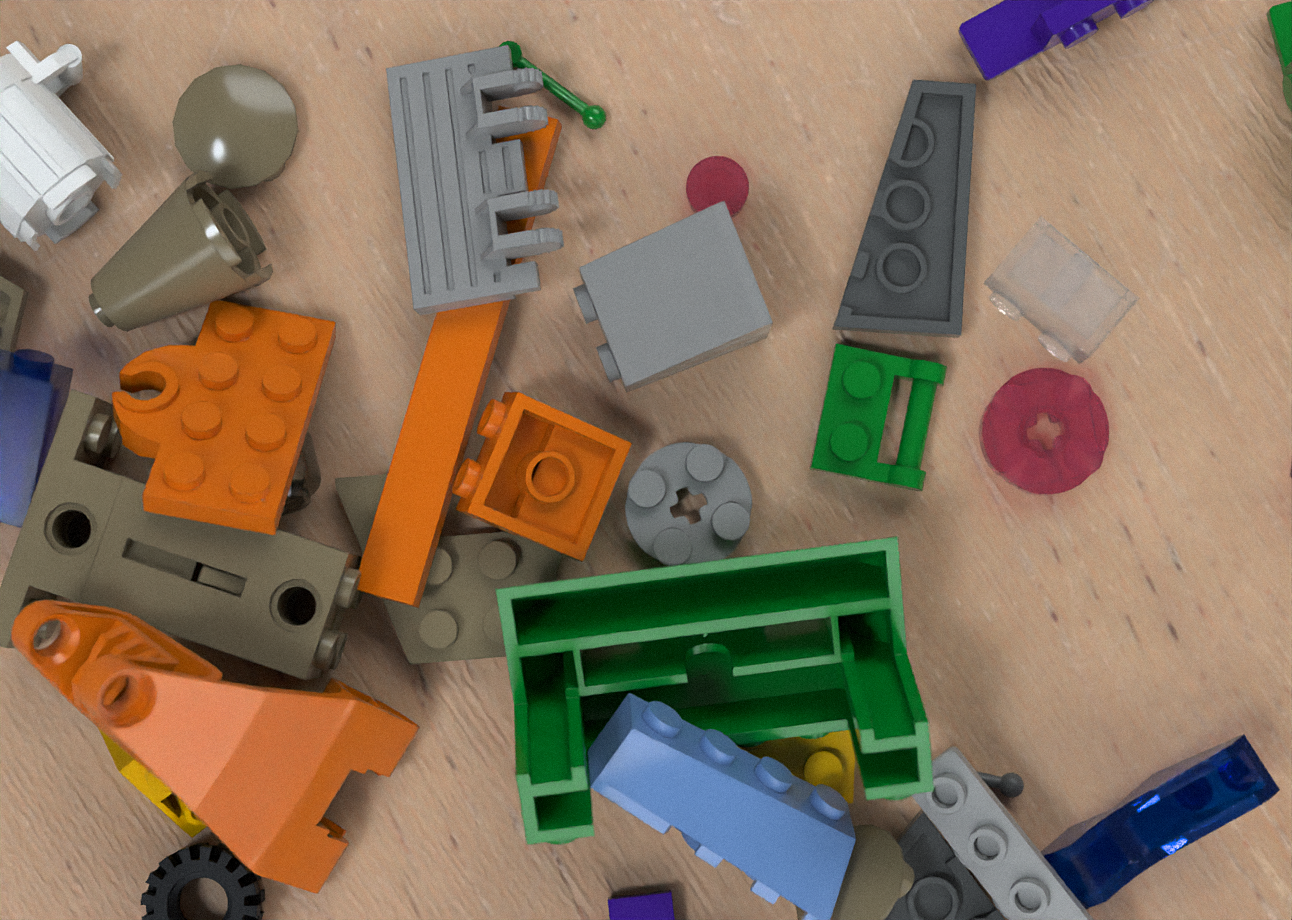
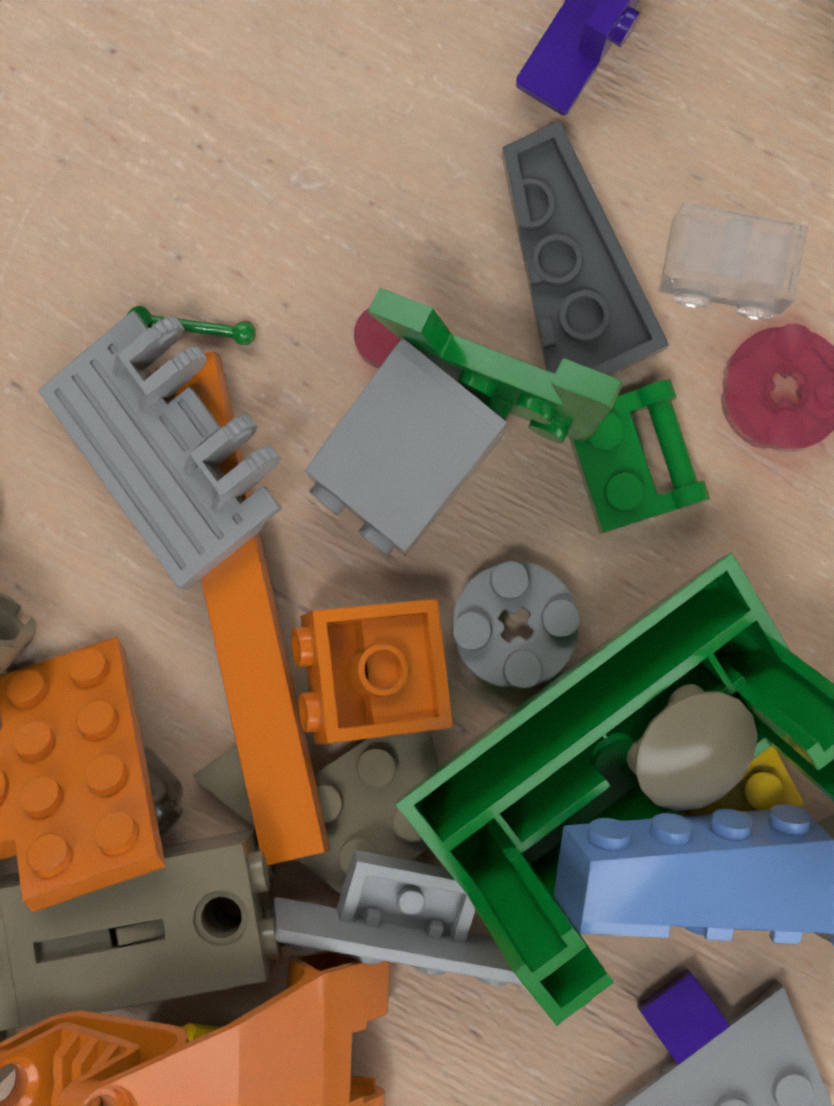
camera: 30 degrees left, 0 degrees up
(446, 694) = (397, 915): none -> light grey bracket
(777, 692) = (694, 749): none -> dark tan dish
(827, 328) = (555, 404): none -> green wing

